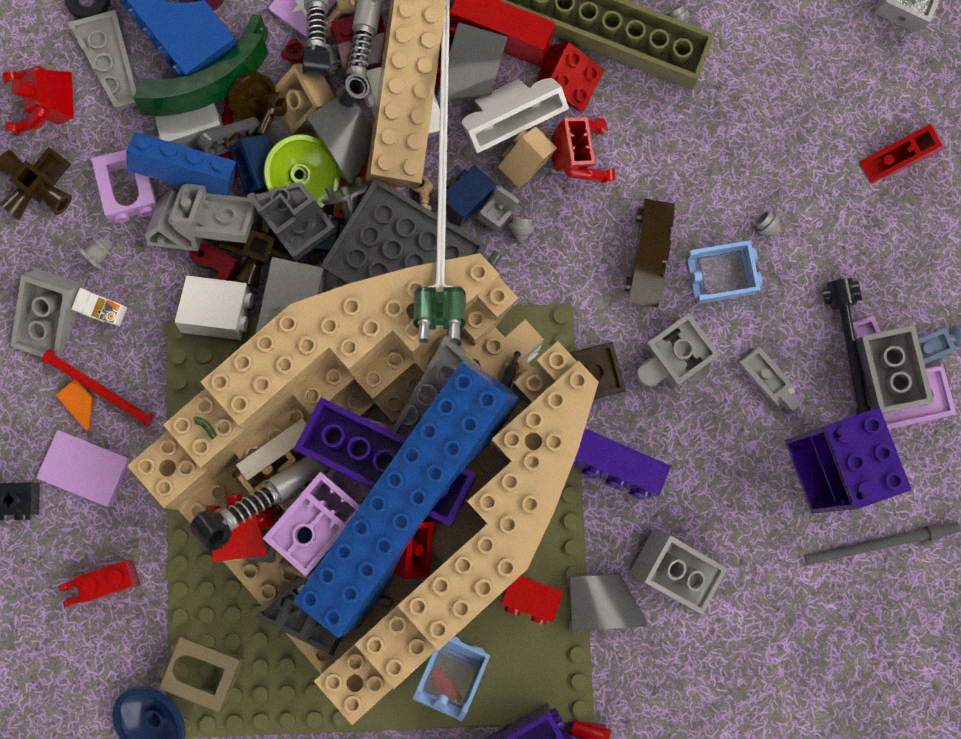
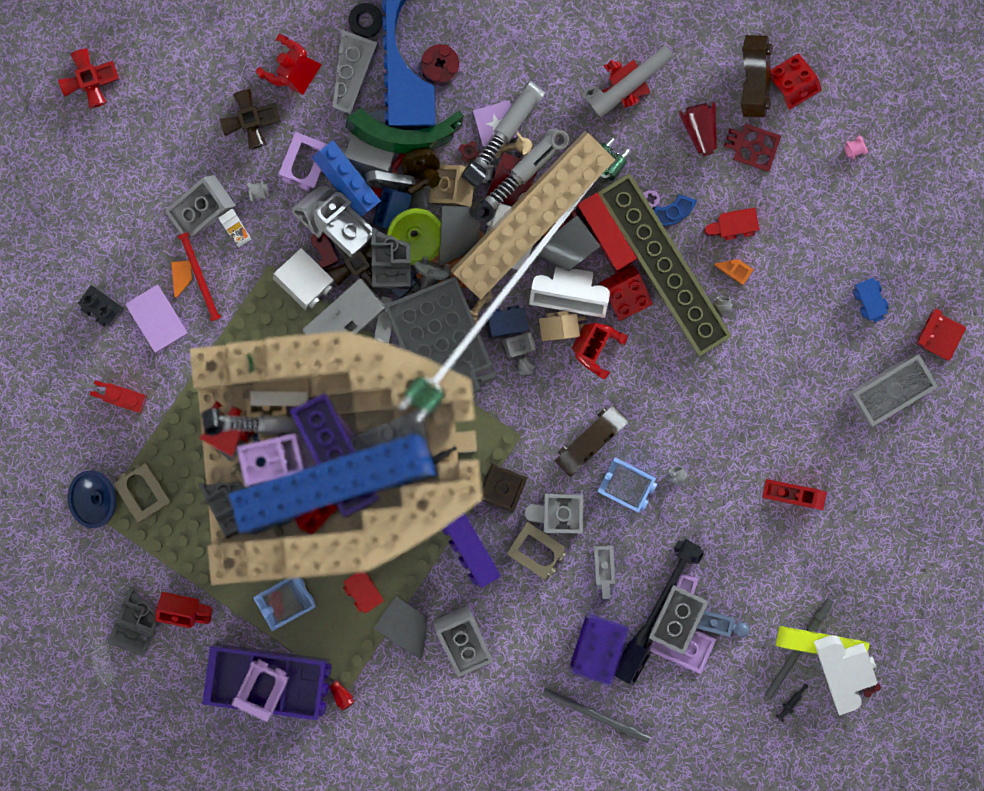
camera: 35 degrees right, 5 degrees up
(660, 432) = (556, 547): none -> dark tan panel

